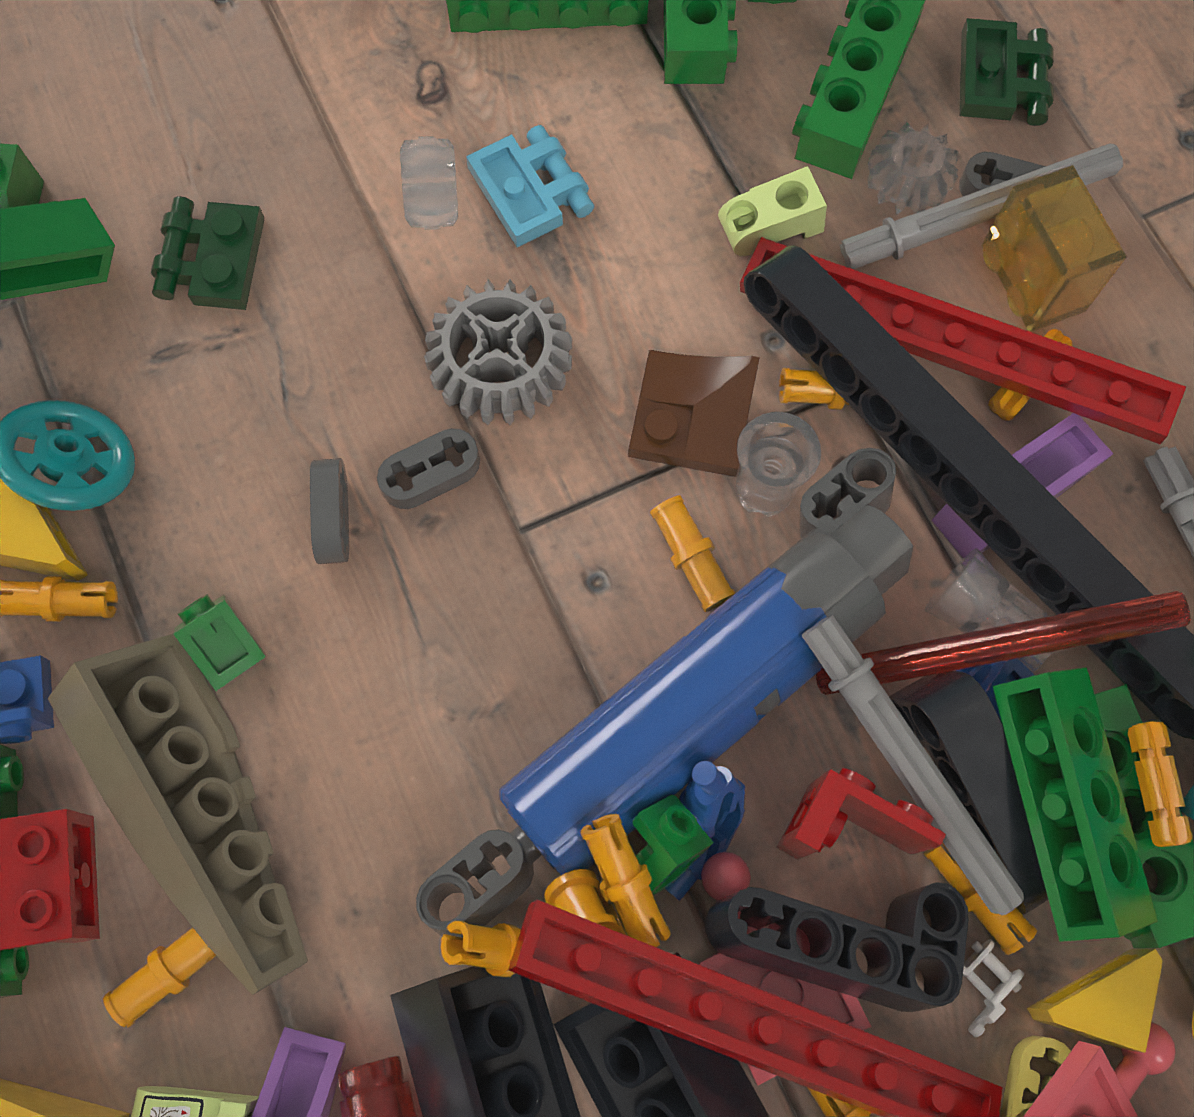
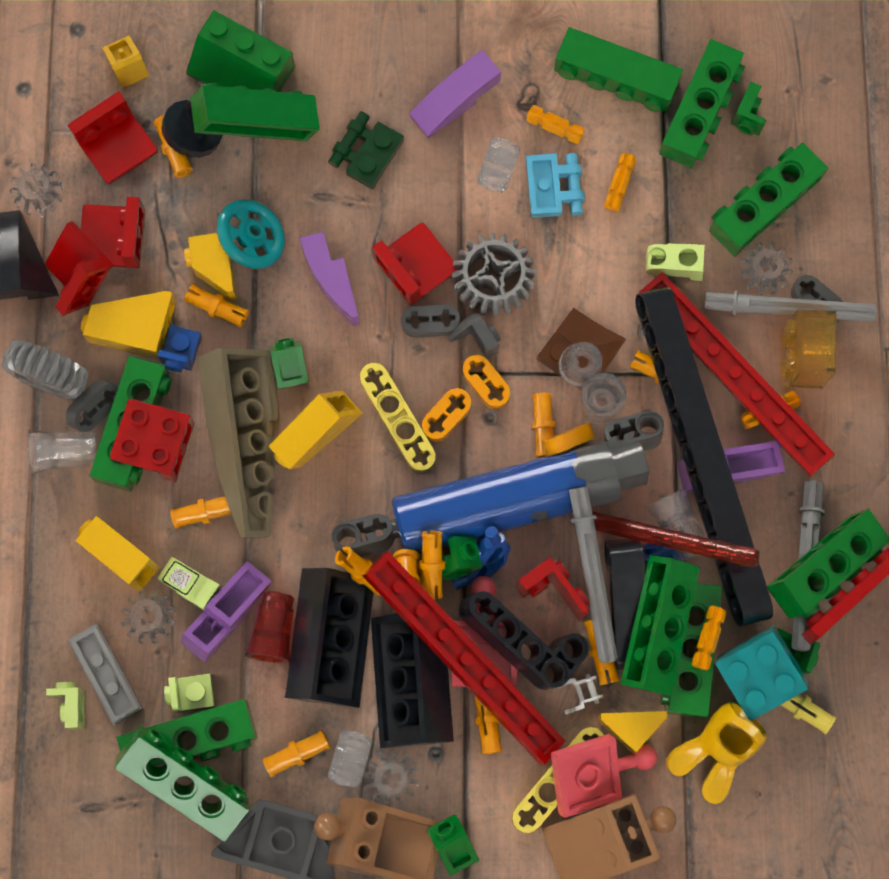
camera: 25 degrees right, 5 degrees up
(229, 466) = (330, 276): none -> medium lavender slope
(306, 732) = (314, 428): none -> yellow slope
(315, 111) = (456, 93): none -> medium lavender slope
(329, 511) = (370, 321): dark grey beam -> none
(360, 389) = (414, 263): none -> red bracket
(439, 655) = (395, 419): none -> light yellow beam
(489, 99) = (555, 124): none -> light orange axle
(511, 604) = (452, 420): none -> light orange beam
(527, 452) = (484, 335): none -> dark grey plate
(559, 537) = (491, 377): none -> light orange beam
(628, 141) = (620, 182): none -> light orange axle
(698, 434) = (569, 366): none -> clear plant
(746, 557) = (568, 439): none -> light orange beam
(990, 71) = (842, 228): dark green plate -> none

